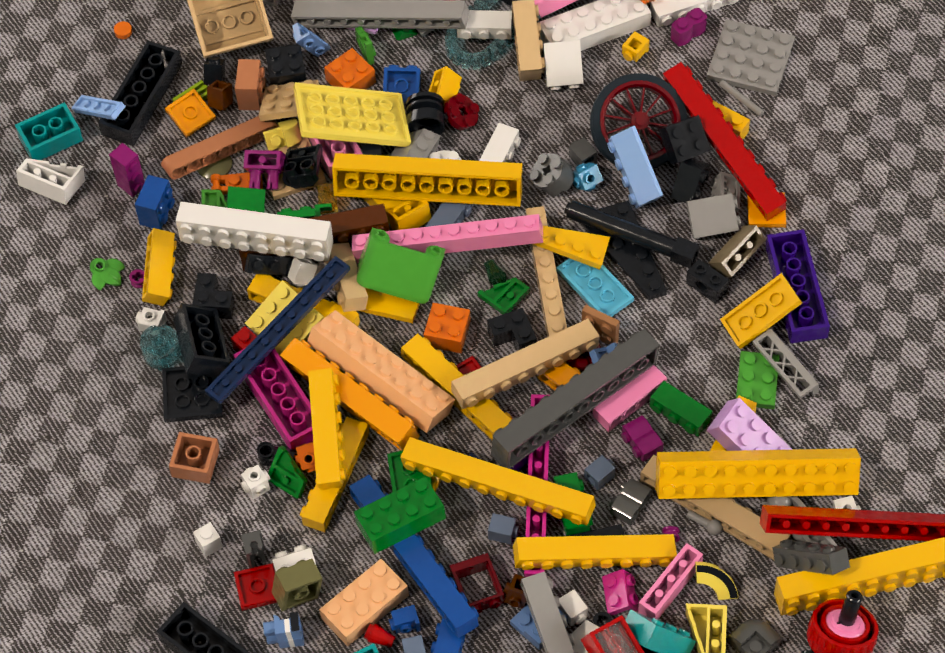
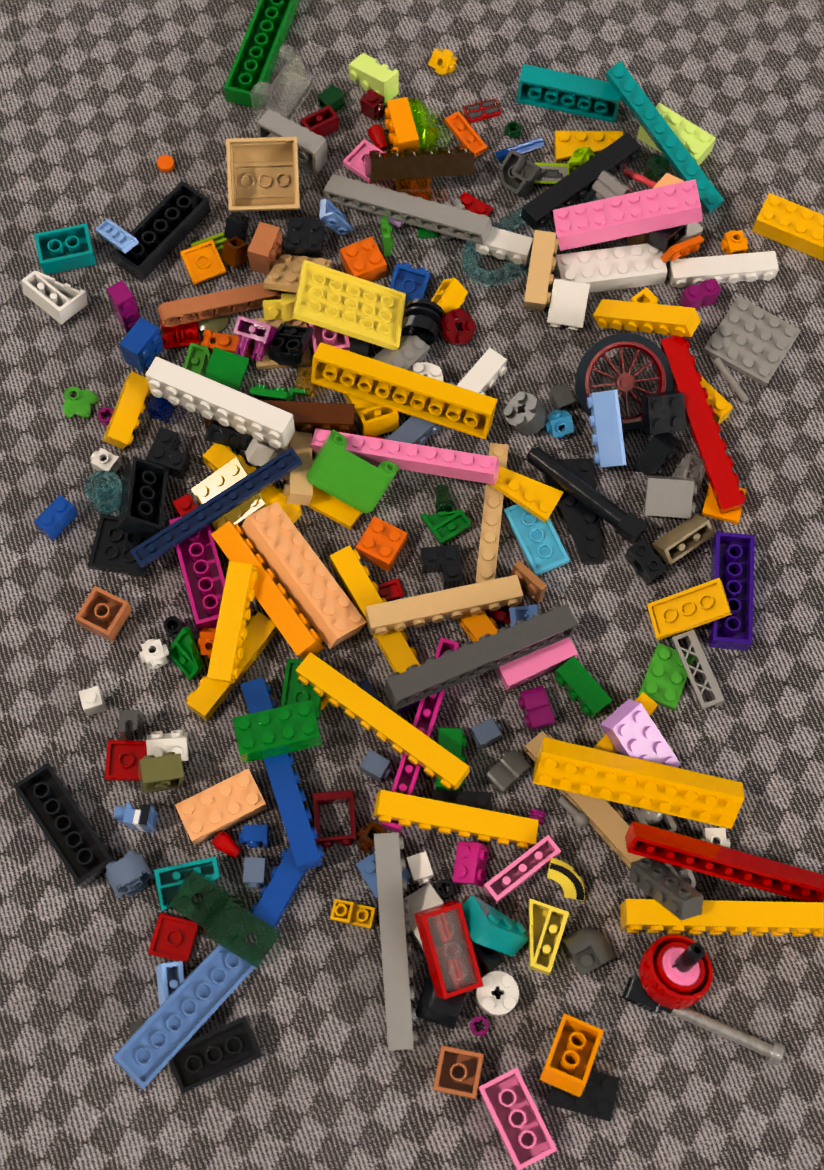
camera: 10 degrees right, 10 degrees up
(118, 382) = (56, 517): none -> blue brick
(188, 185) = (179, 335): none -> red hinge
(191, 253) = (161, 406): none -> clear blue brick
(643, 57) = (647, 317): none -> yellow brick

